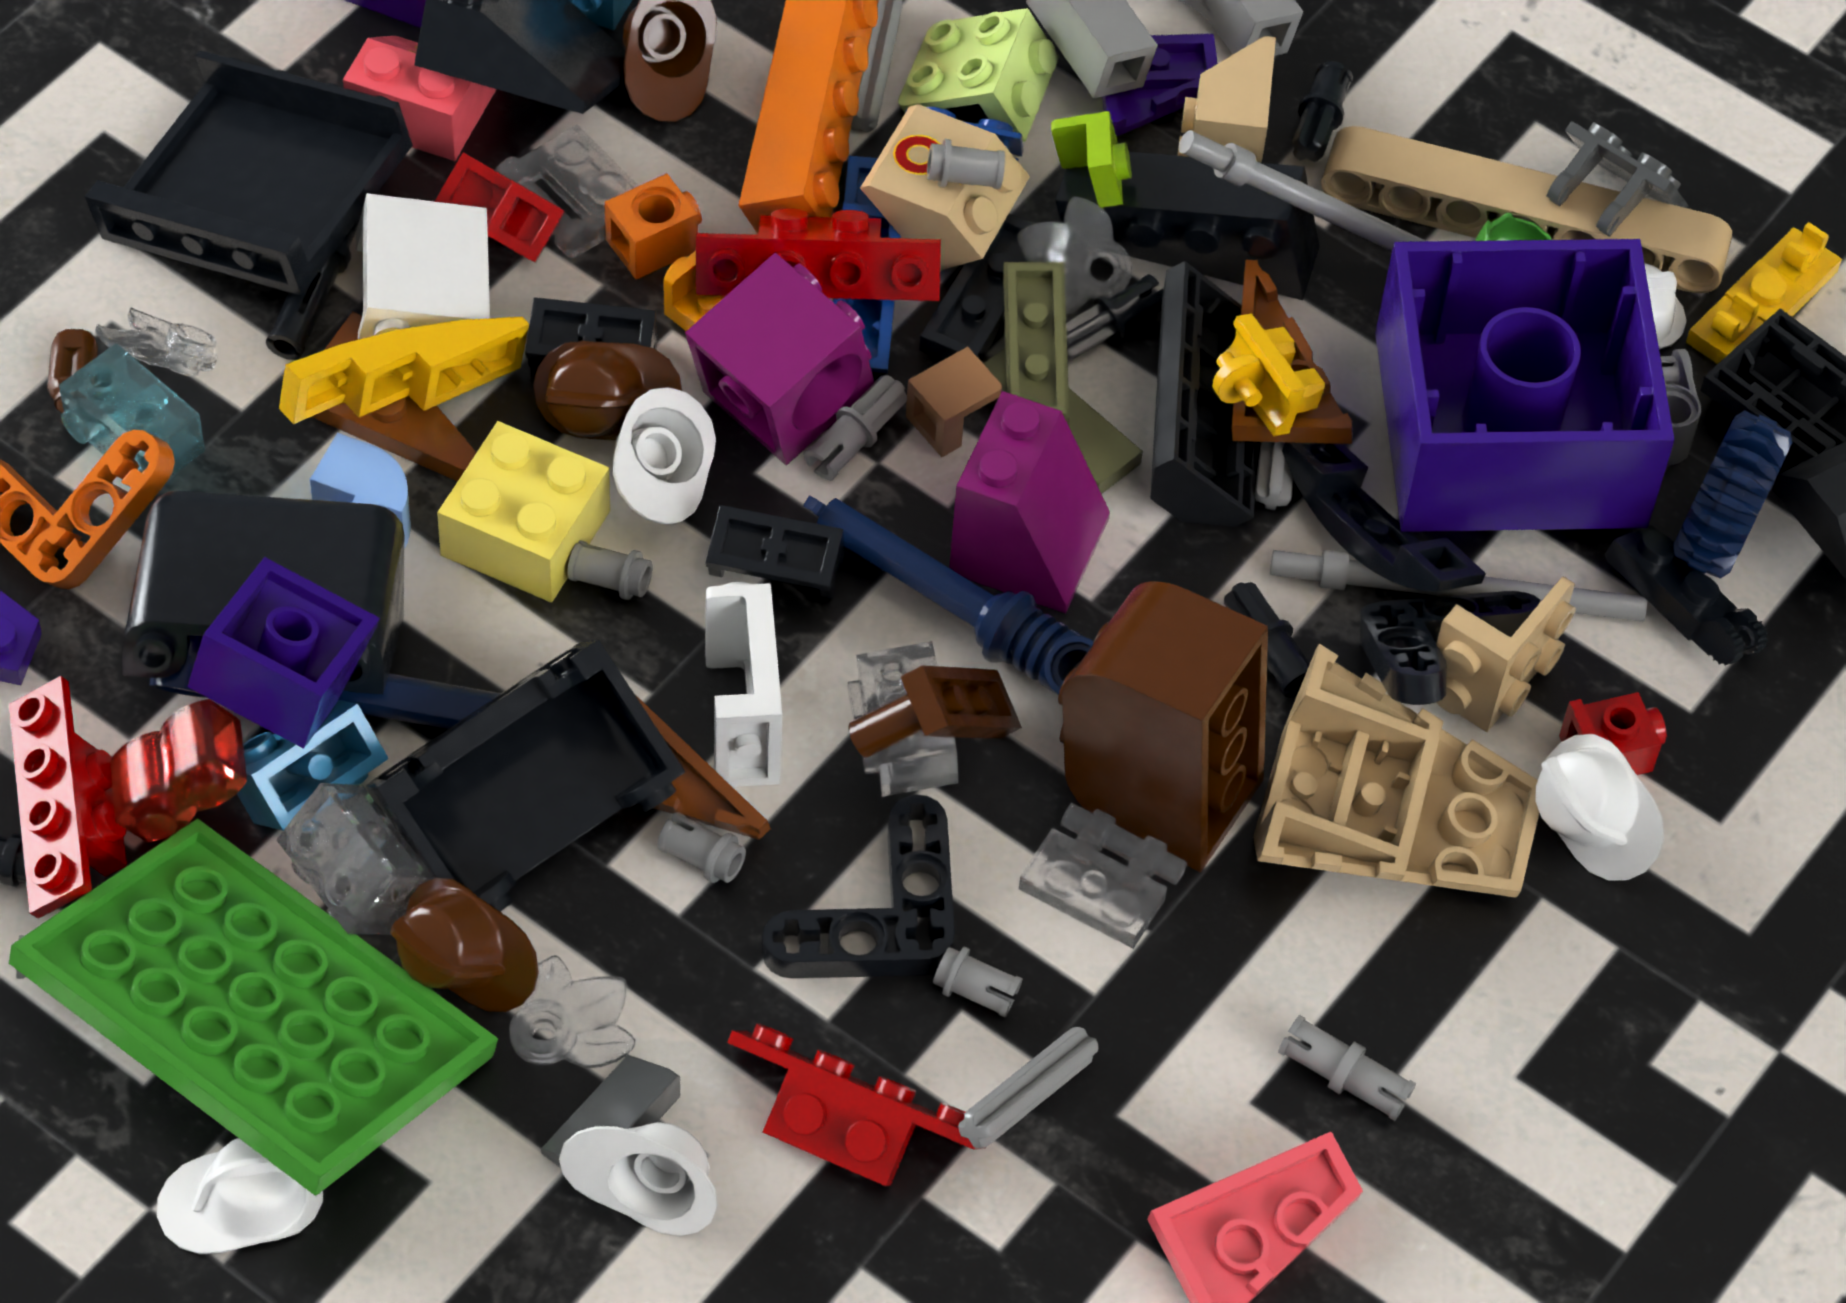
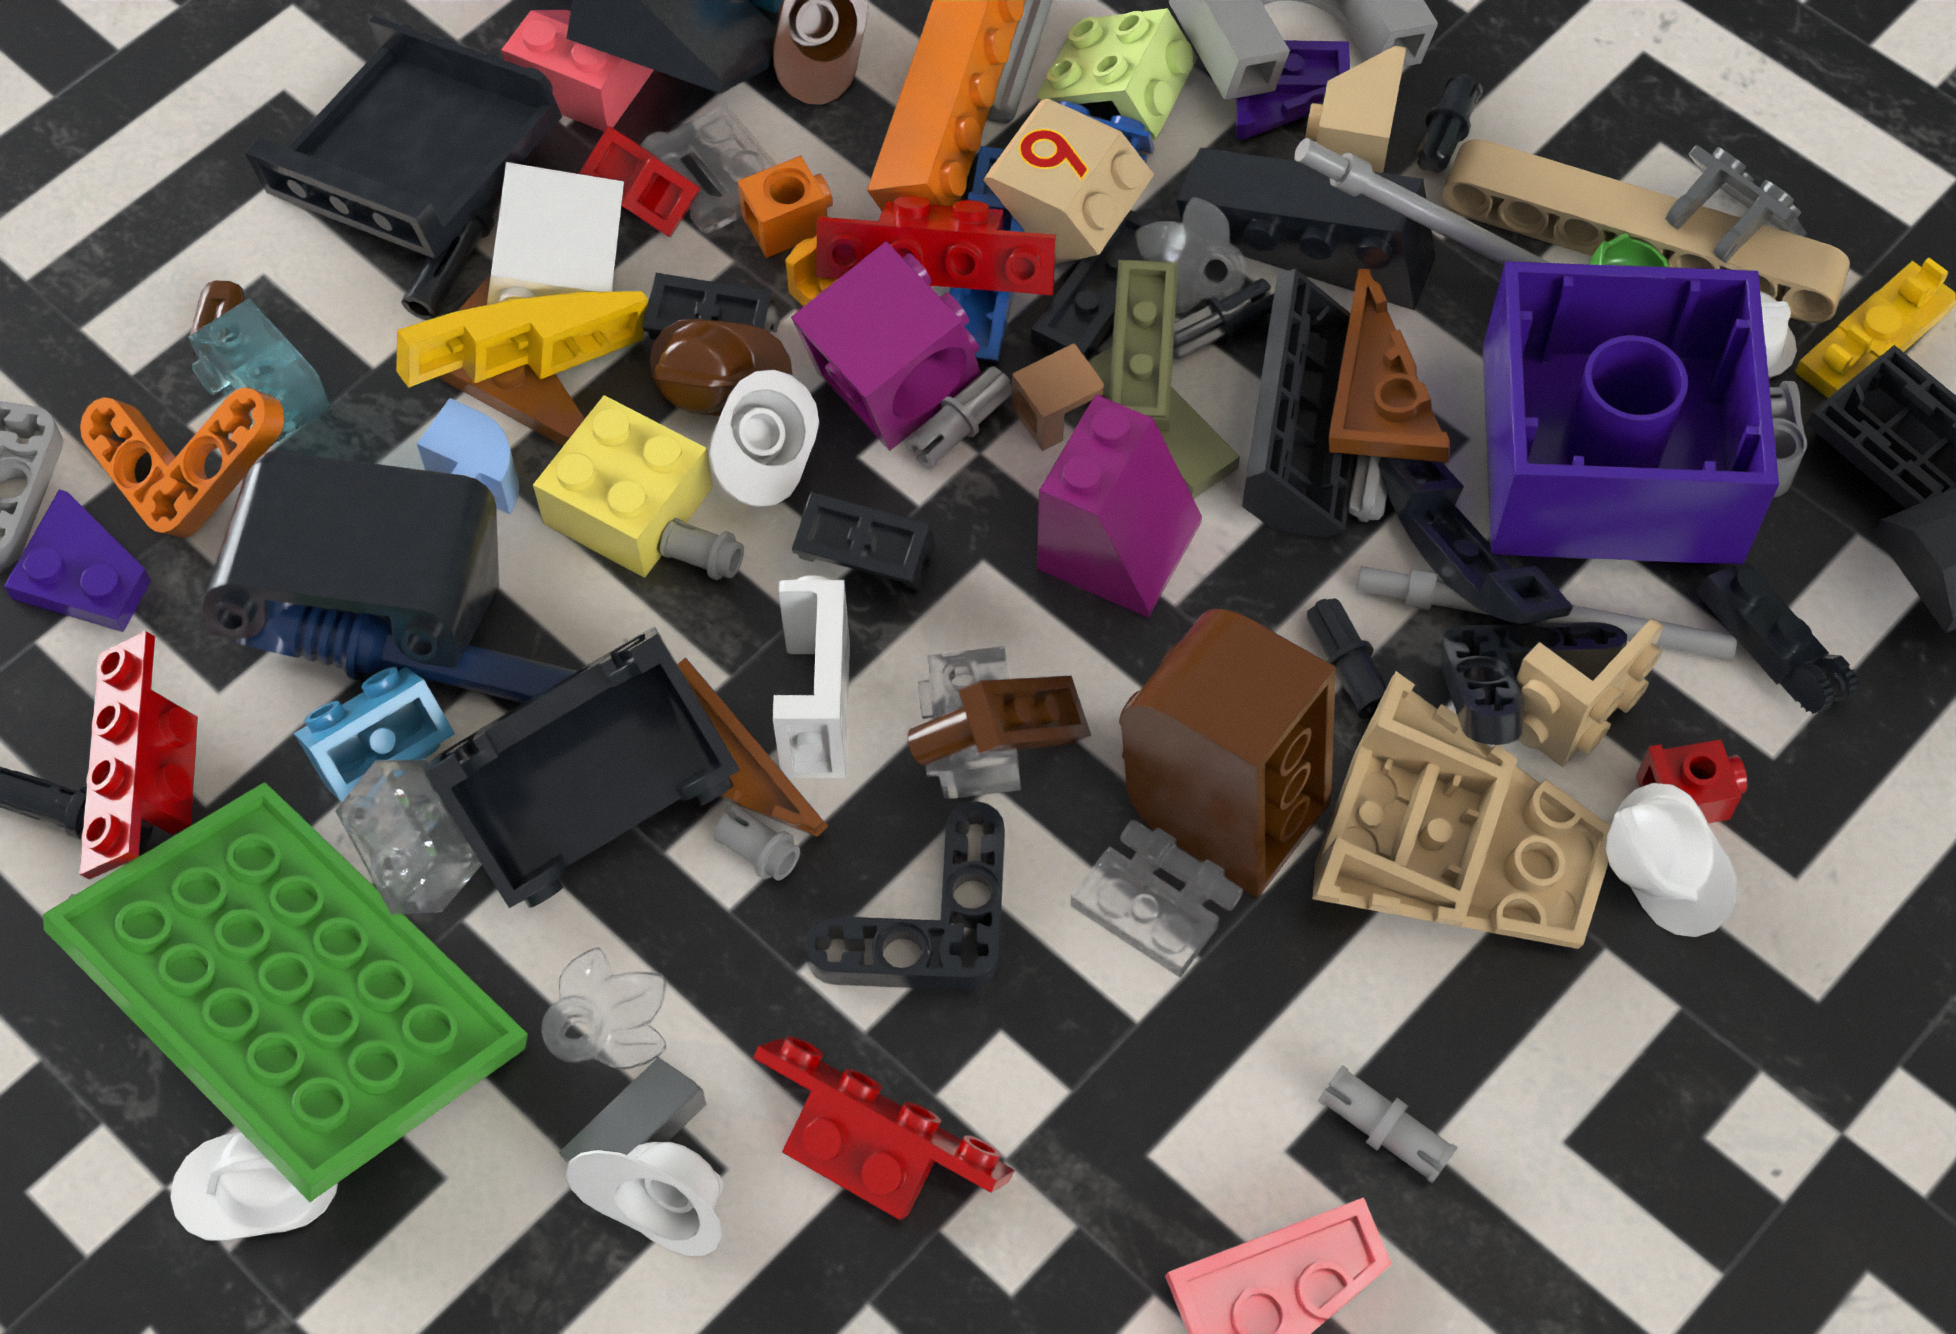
camera: 10 degrees right, 5 degrees up
(163, 344) = (301, 300): clear plate -> none
(178, 770) = (245, 735): clear red brick -> none
(282, 652) = (347, 624): dark purple slope -> none
(465, 946) = (502, 934): reddish brown piece -> none
(965, 165) = (1086, 162): light grey pin -> none
(973, 979) = (1016, 1003): light grey pin -> none
(1005, 624) = (1083, 628): dark blue piece -> none
(1028, 1087) = (1054, 1127): light grey axle -> none
(1093, 143) = (1216, 146): lime bracket -> none
(1261, 375) = (1360, 389): yellow hips -> none
(1732, 494) = (1834, 537): dark blue gear -> none

